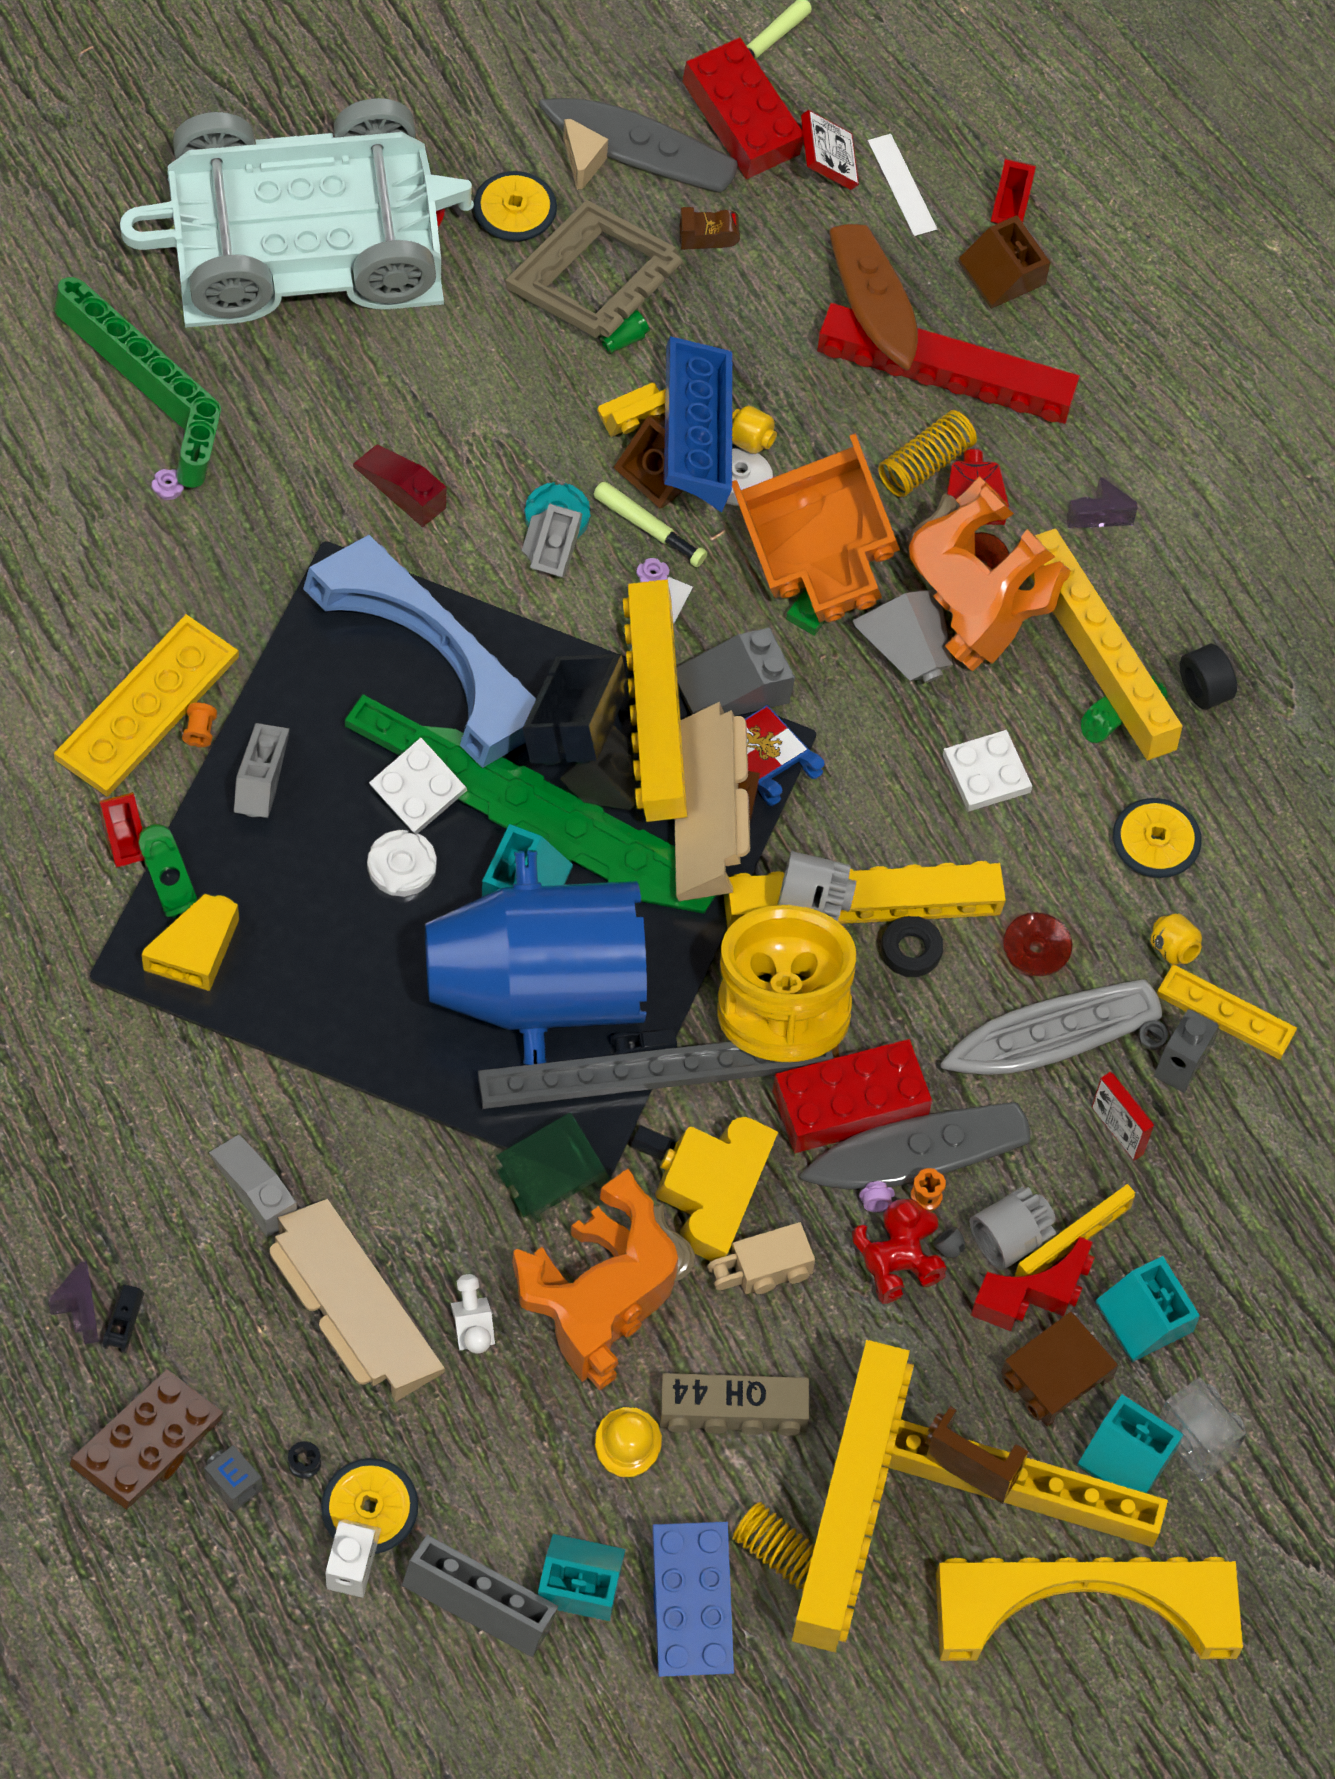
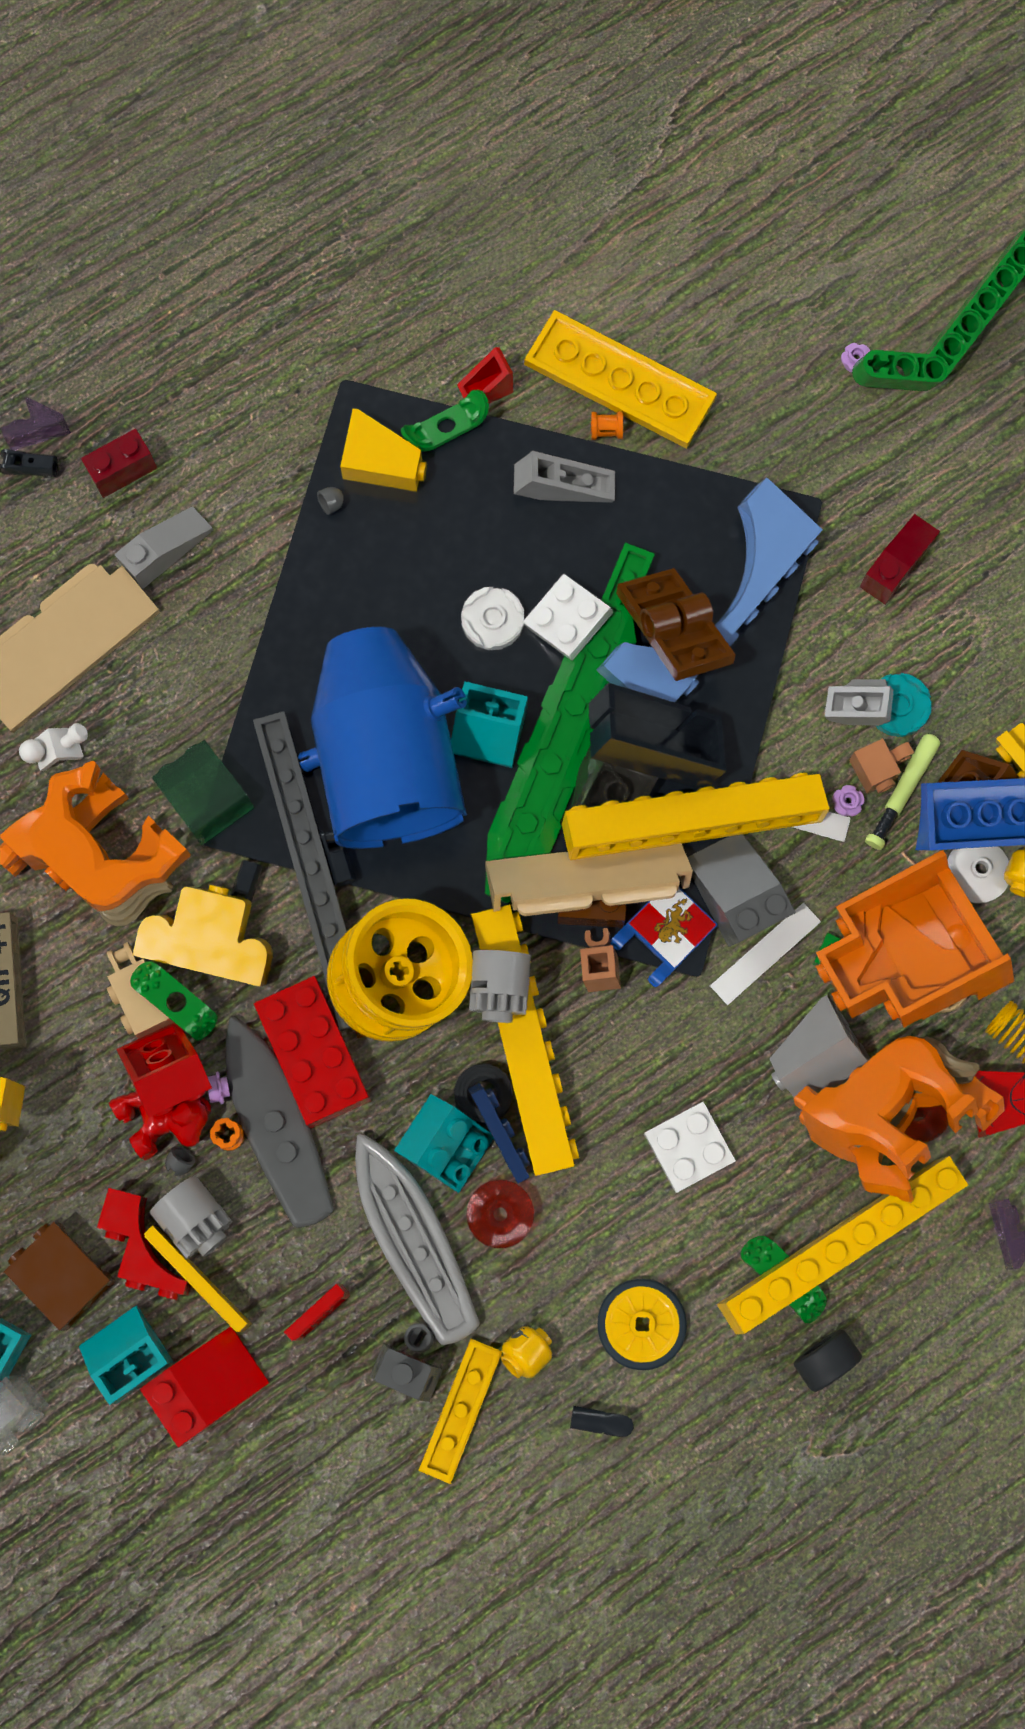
camera: 90 degrees right, 15 degrees up
(147, 1215) = (119, 463): none -> dark red brick
(237, 1002) = (330, 499): none -> dark grey hinge
(453, 674) = (676, 623): none -> reddish brown plate
(621, 538) = (878, 765): none -> nougat brick
(766, 1226) = (156, 986): none -> green piece
(797, 813) = (600, 964): none -> nougat brick
(807, 684) = (765, 954): none -> white sticker
(857, 1227) = (164, 1069): none -> red slope
(957, 927) = (500, 1131): none -> dark blue plate
(959, 985) = (444, 1143): none -> teal slope
(1189, 1239) = (204, 1386): none -> red slope
(1248, 886) = (601, 1422): none -> black bar

